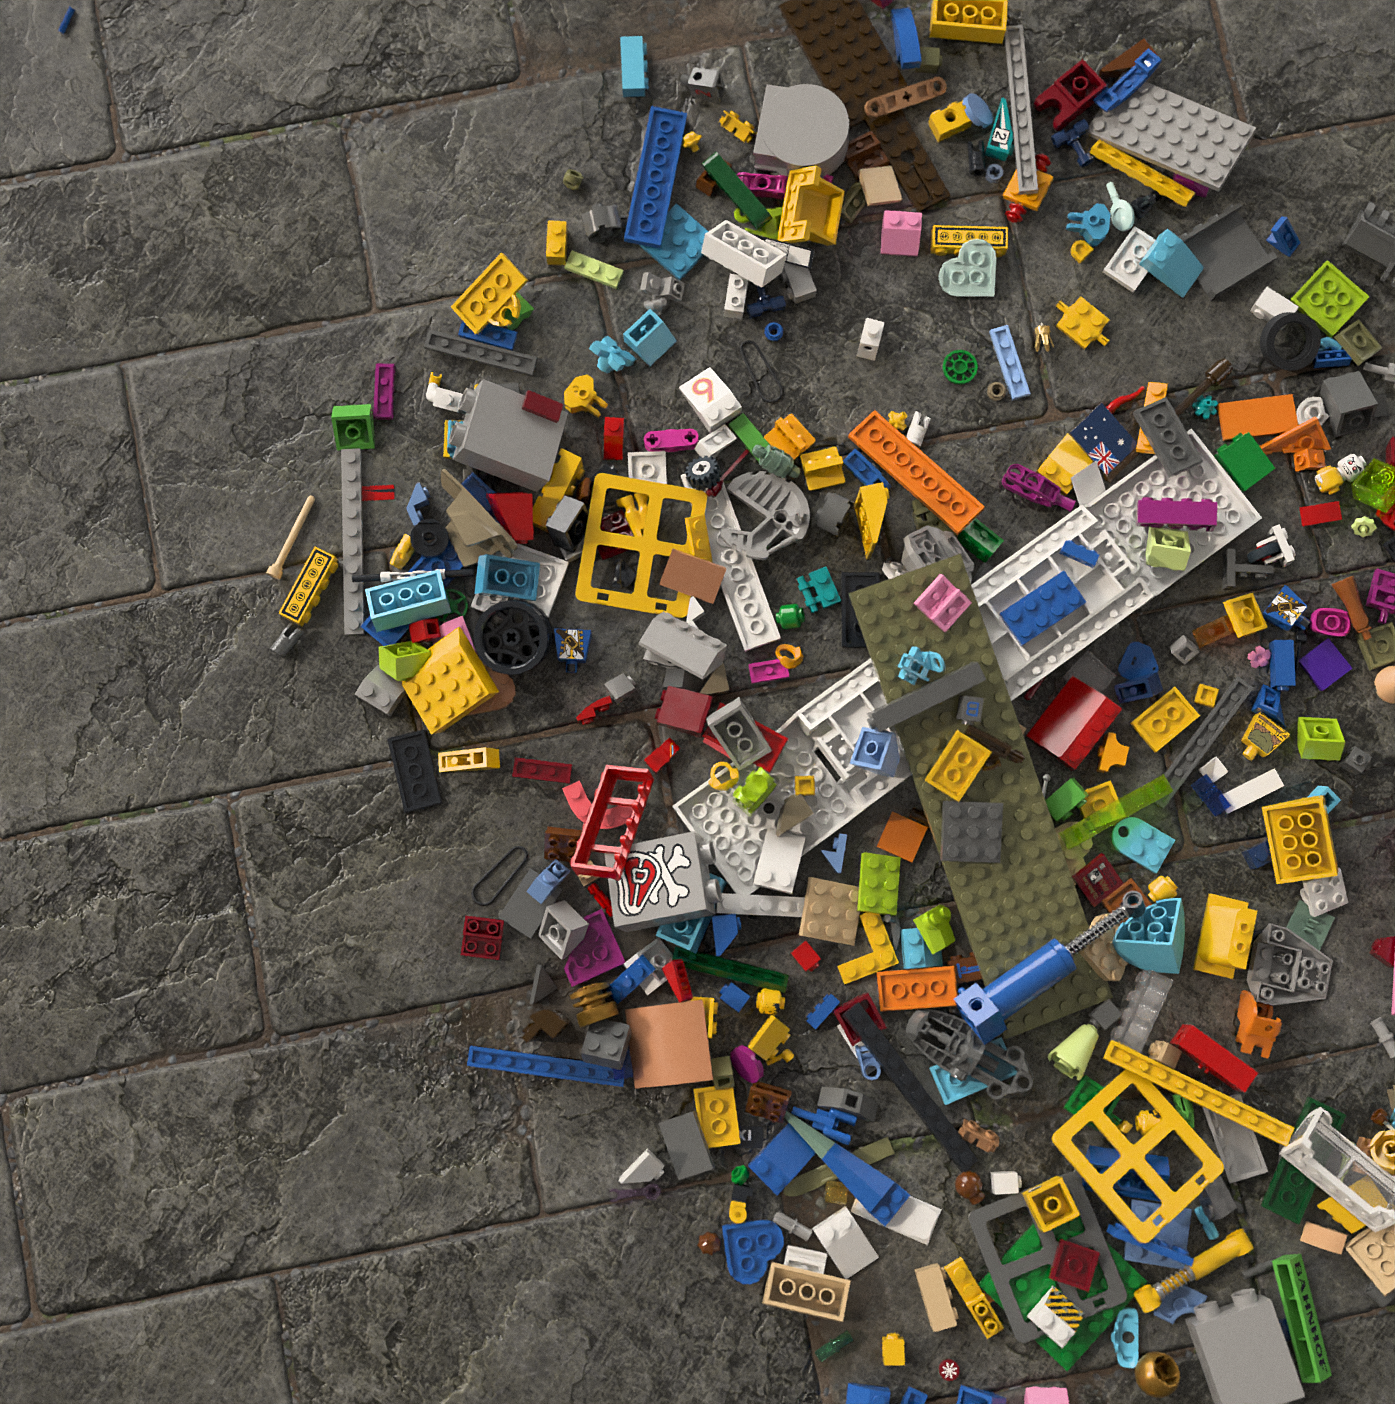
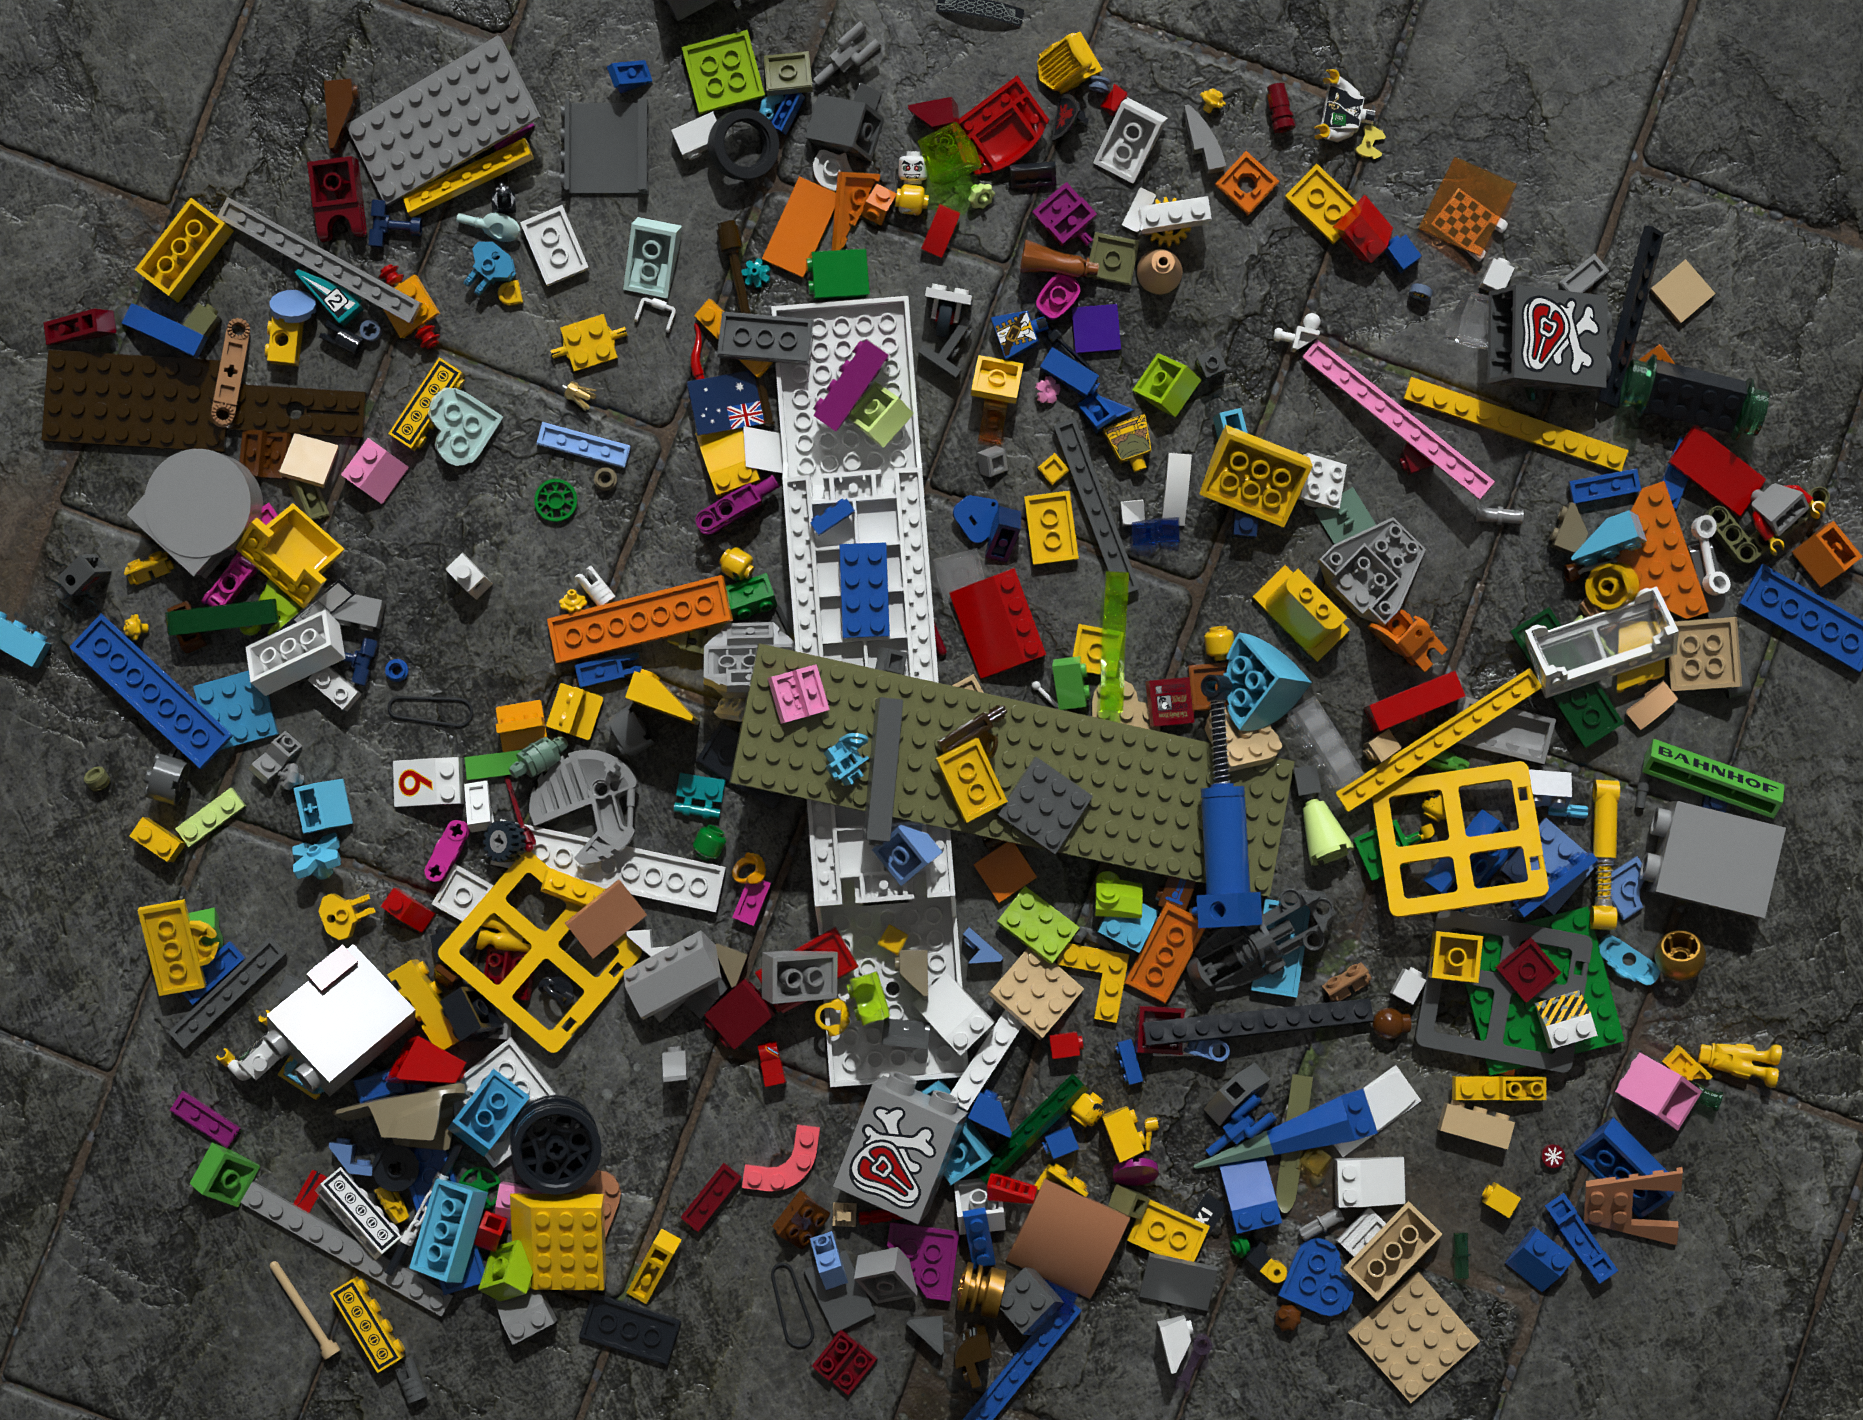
camera: 55 degrees left, 5 degrees up
(382, 532) = (358, 1213): none -> white brick
(572, 647) = (602, 1088): torso -> none
(588, 714) = (682, 1114): red slope -> none
(597, 810) = (791, 1170): red window -> none
(743, 835) = (905, 1033): none -> dark grey hinge
(752, 1347) = (1413, 1336): none -> tan plate
(768, 1101) = (1185, 1173): reddish brown bracket -> none
(969, 709) = (922, 733): dark grey brick -> none
(996, 516) = (737, 564): none -> yellow head
(1006, 657) = (891, 660): none -> dark grey slope
(1111, 753) = (1052, 605): light orange brick -> none
(1129, 83) = (363, 129): blue slope -> none
(1139, 352) = (659, 304): none -> white piece
(1142, 844) = (1161, 630): medium azure plate -> none
(1170, 328) = (652, 257): none -> light aqua slope
(1172, 263) = (585, 210): medium azure slope -> none

